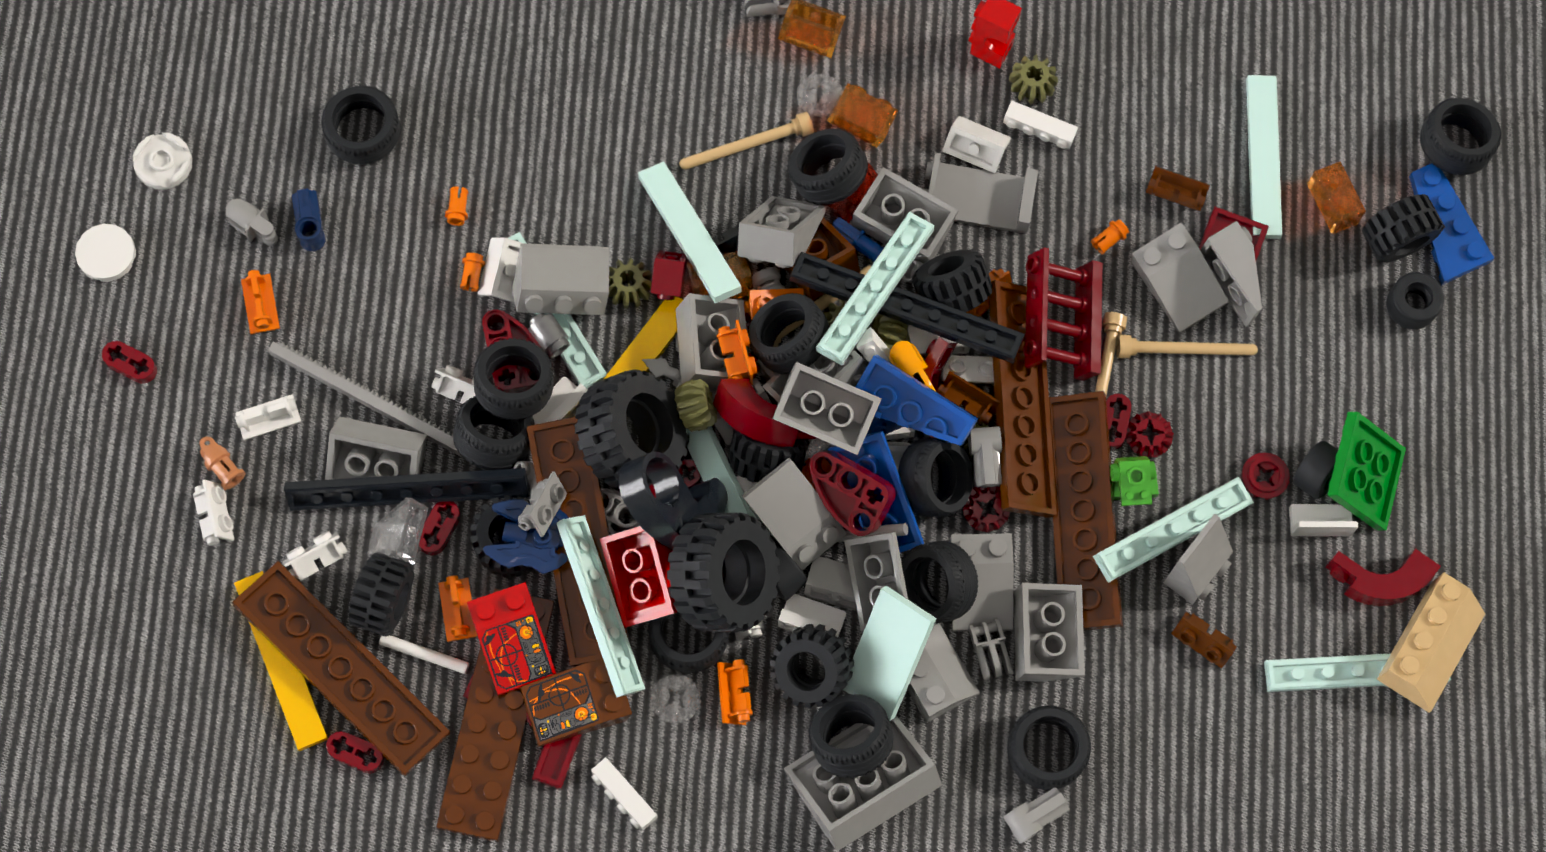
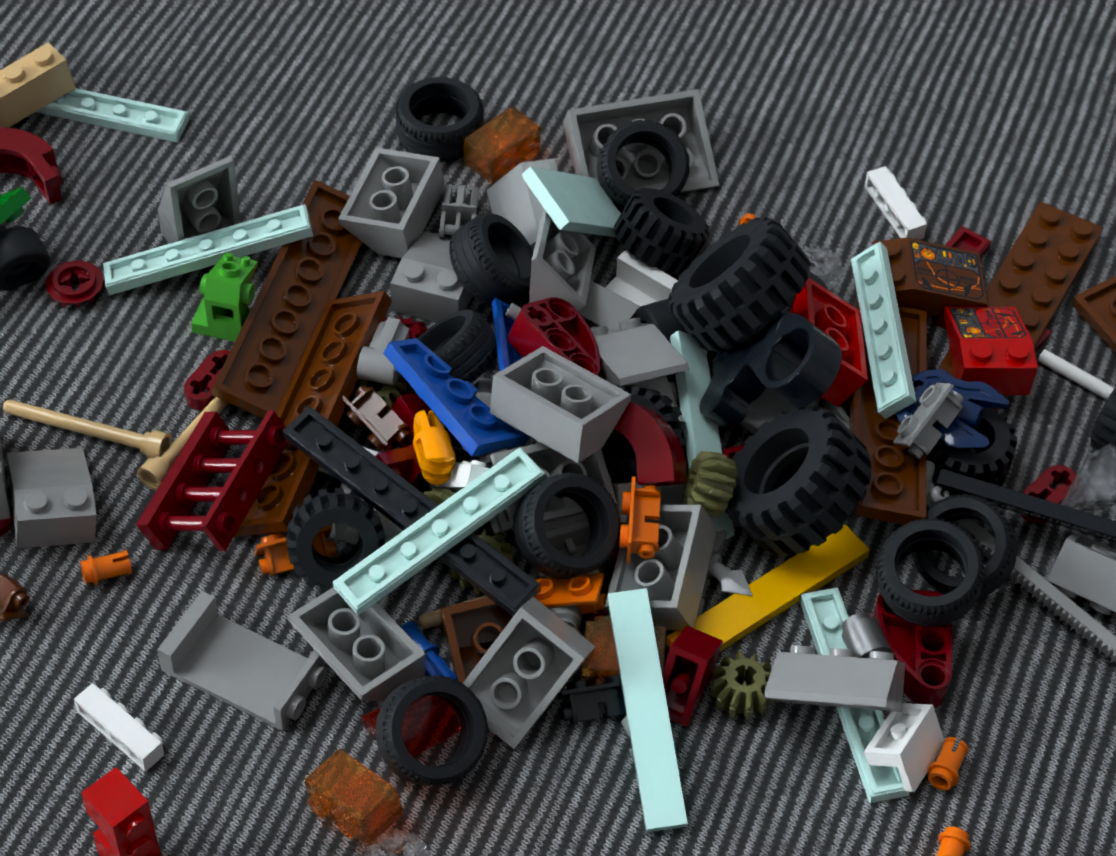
camera: 160 degrees left, 20 degrees down
(452, 382) = (990, 636): white hinge -> none
(456, 614) = (1042, 407): orange hinge -> none
(562, 402) = (858, 577): white panel -> none
(800, 125) = (443, 821): tan piece -> none
(976, 144) = (212, 728): white panel -> none
(984, 739) = (502, 144): none -> clear orange brick
(1030, 818) = (487, 77): light grey piece -> none
(1035, 71) = (88, 771): olive gear -> none
(1140, 443) = (183, 368): dark red gear -> none
(1214, 647) = (220, 150): reddish brown hinge -> none
(1321, 520) = (53, 221): white panel -> none

